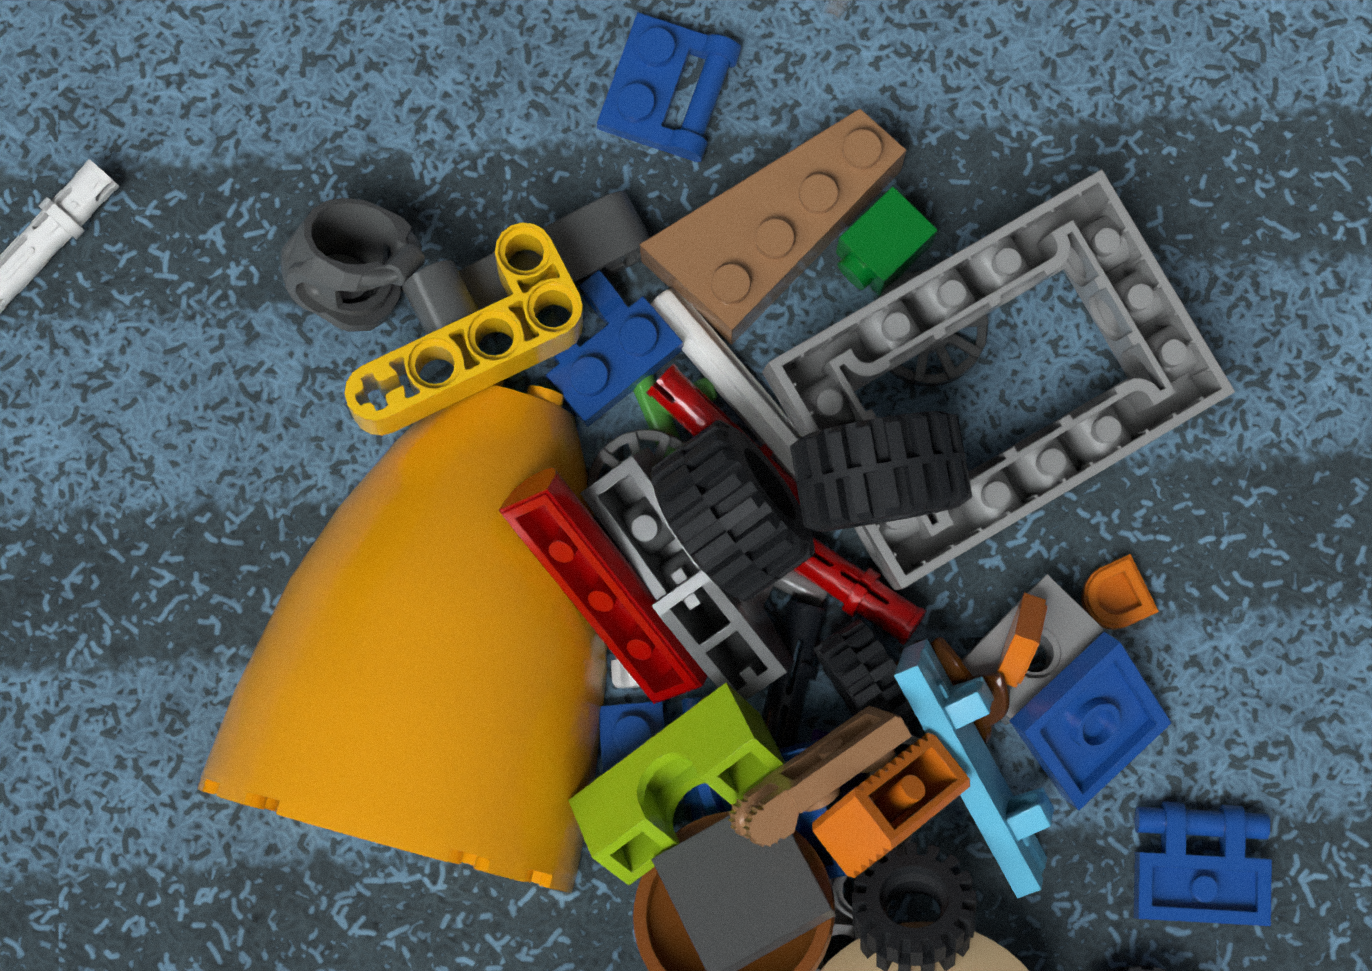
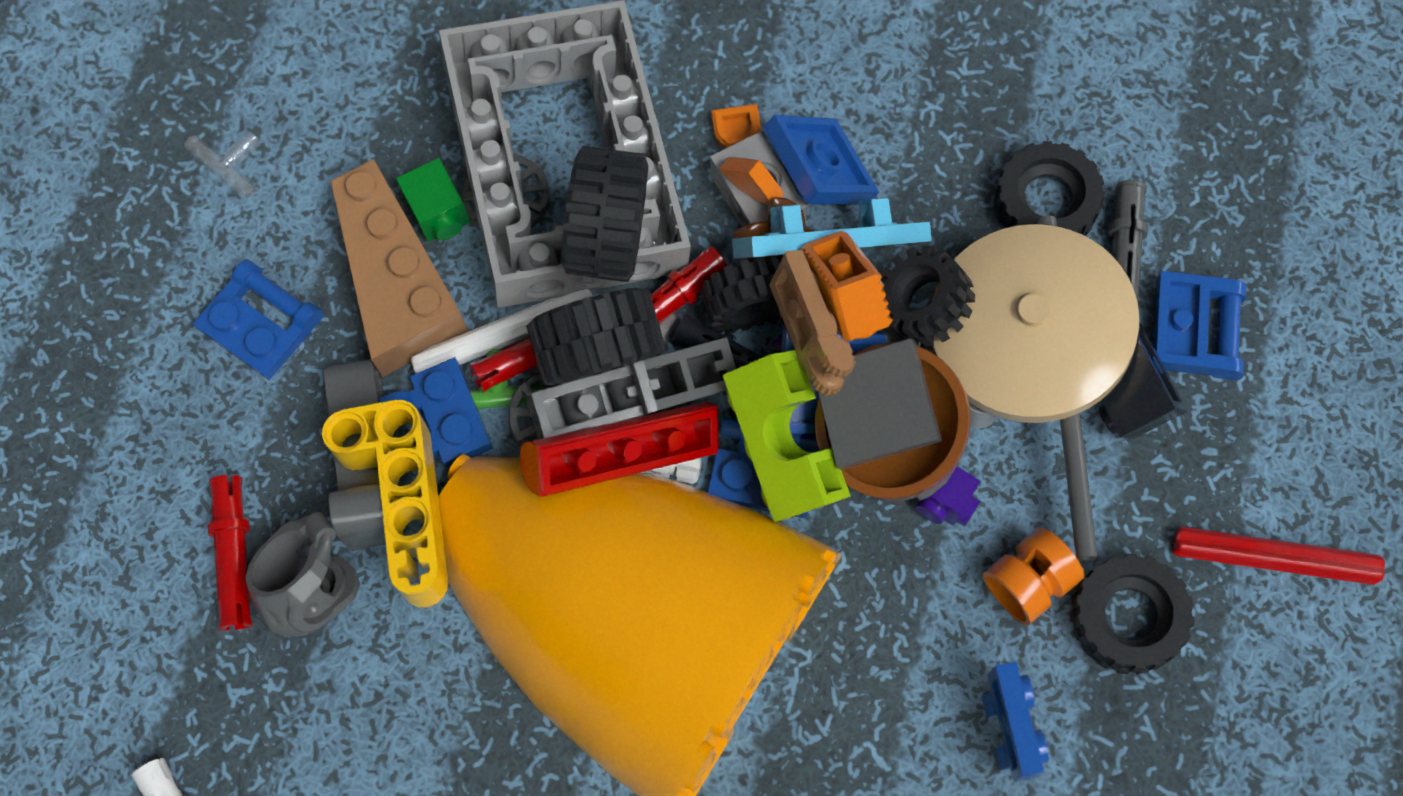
camera: 70 degrees left, 10 degrees down
(372, 166) = (229, 532): none -> red pin
(1199, 886) = (953, 132): blue plate -> none

